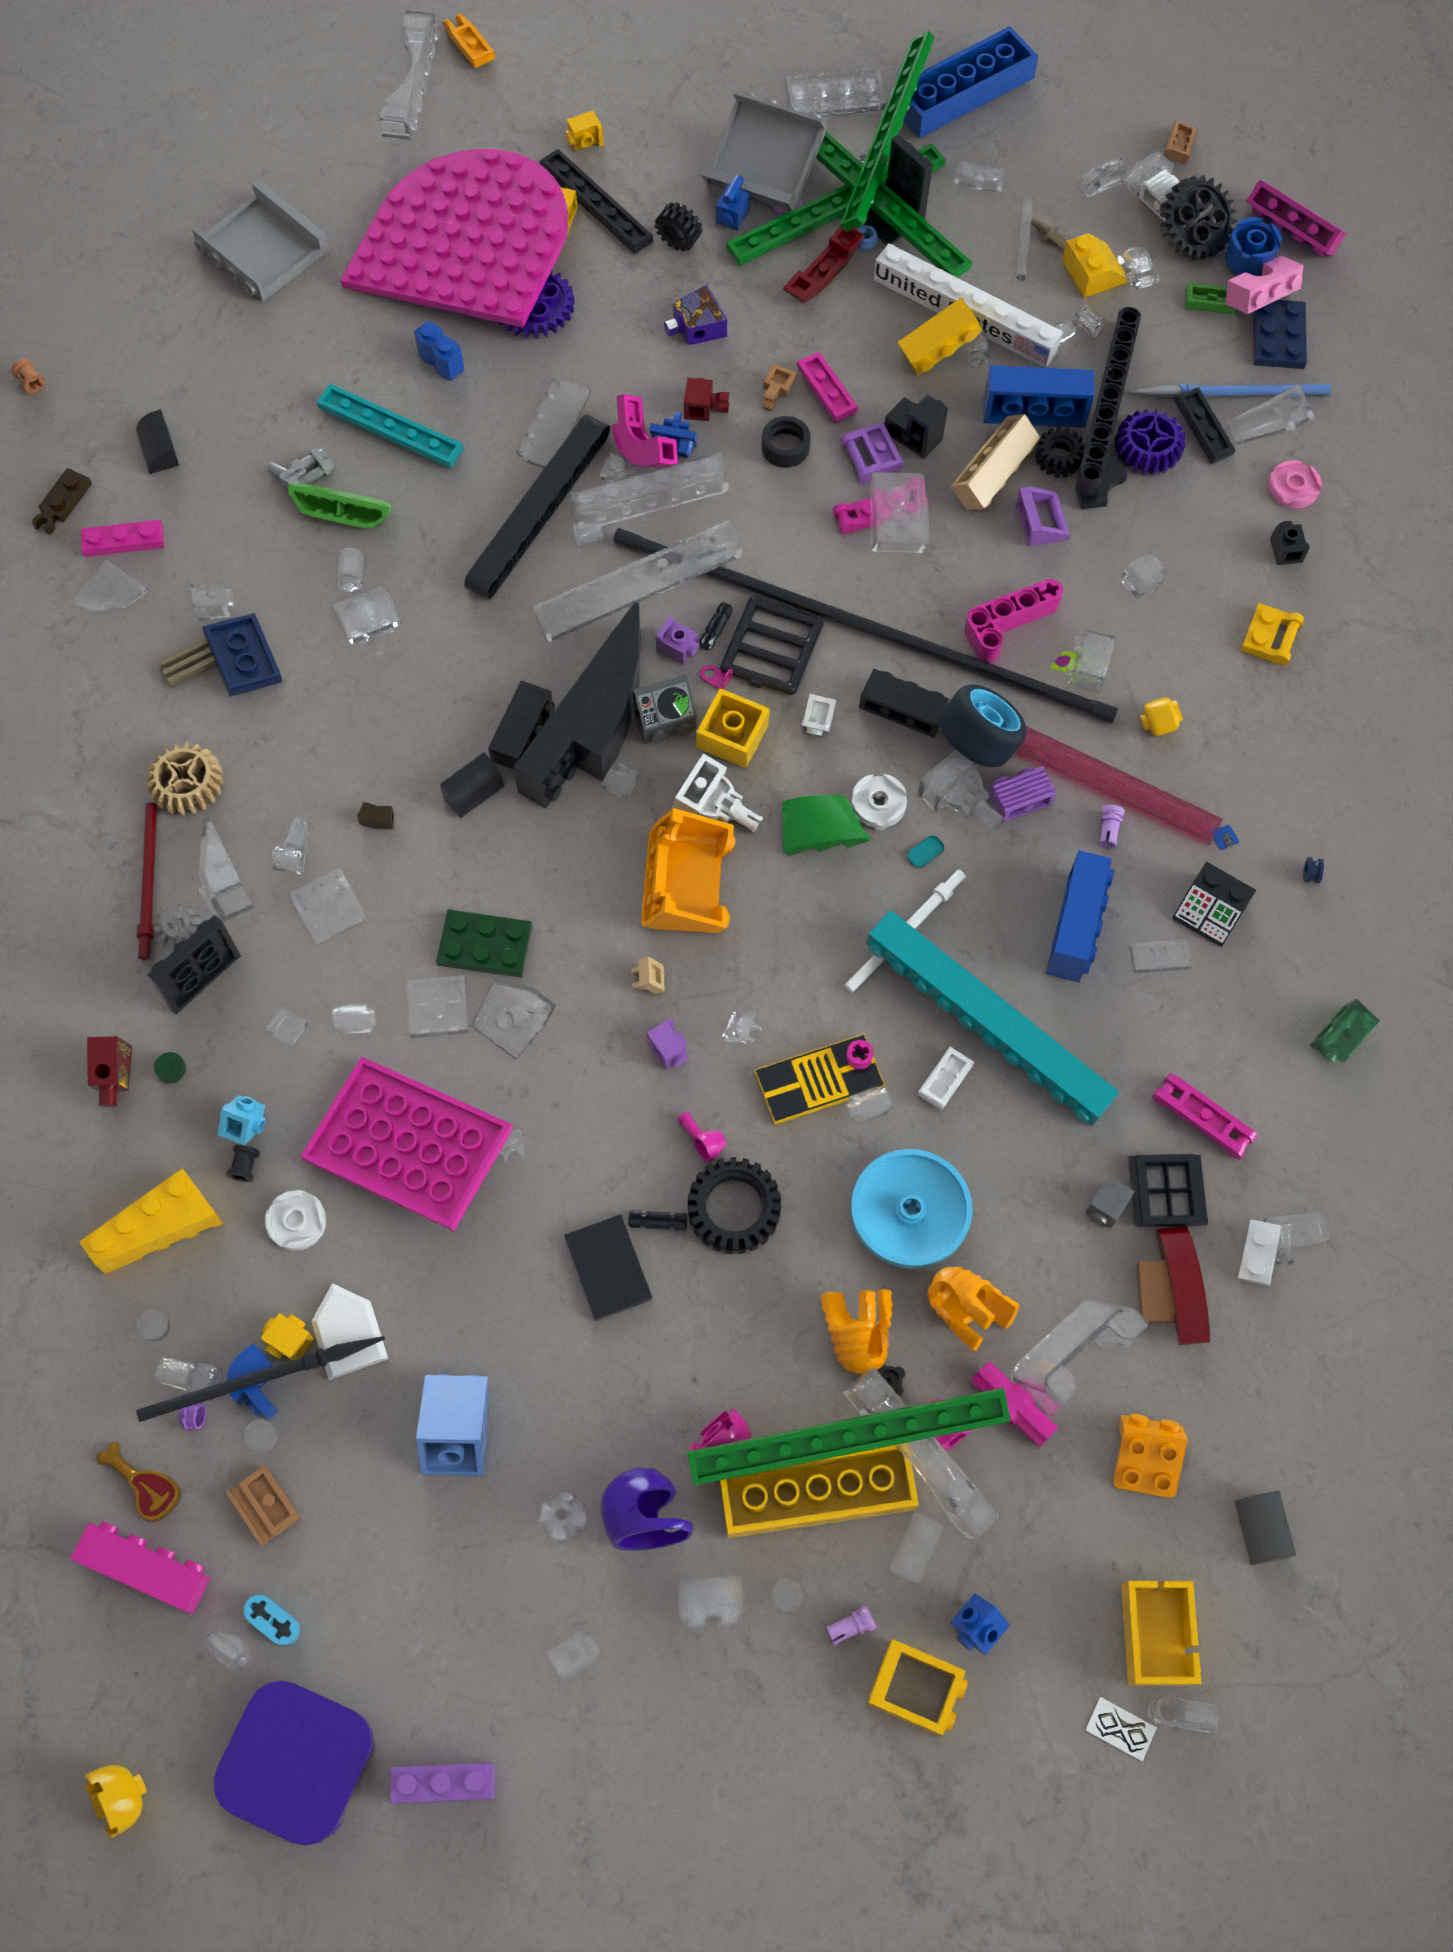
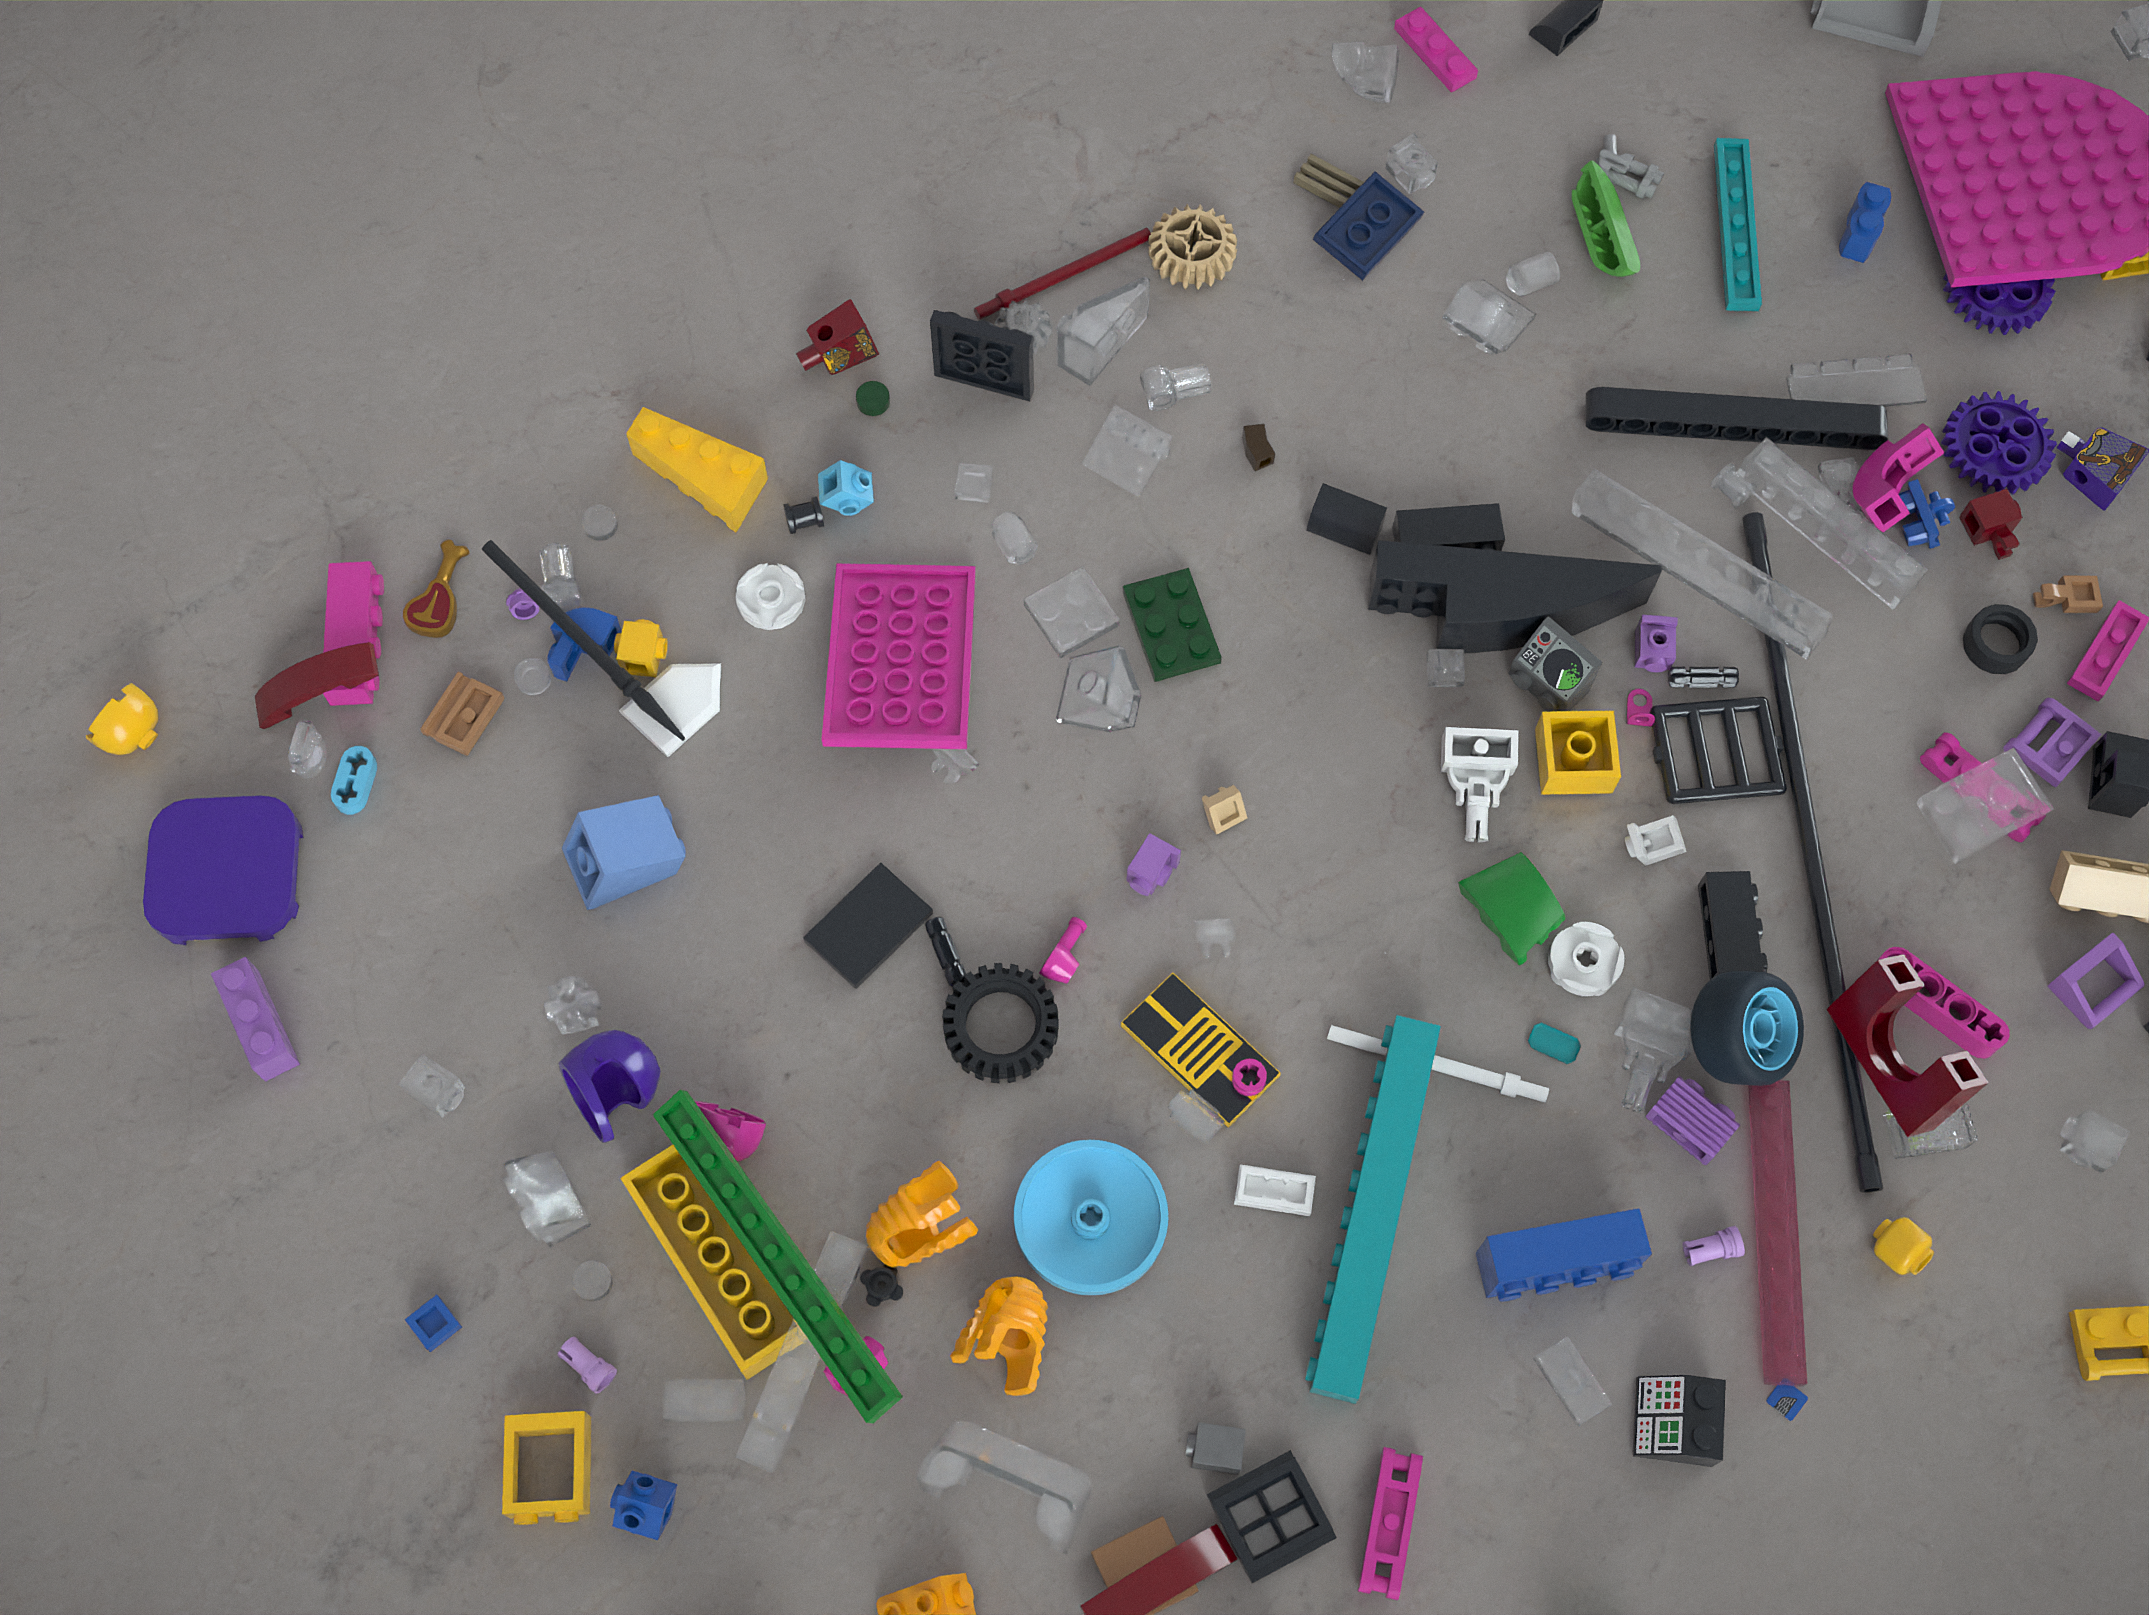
camera: 65 degrees right, 0 degrees up
(171, 1615) = (313, 677): none -> dark red slope
(648, 365) = (1998, 443): none -> dark purple gear
(685, 873) = (1367, 790): light orange windscreen -> none
(765, 1734) = (433, 1323): none -> blue plate
(1020, 1404) = (916, 1437): dark pink piece -> none
(1076, 655) = (1866, 1021): none -> dark red arch
(1313, 870) = (1802, 1530): dark blue bush -> none

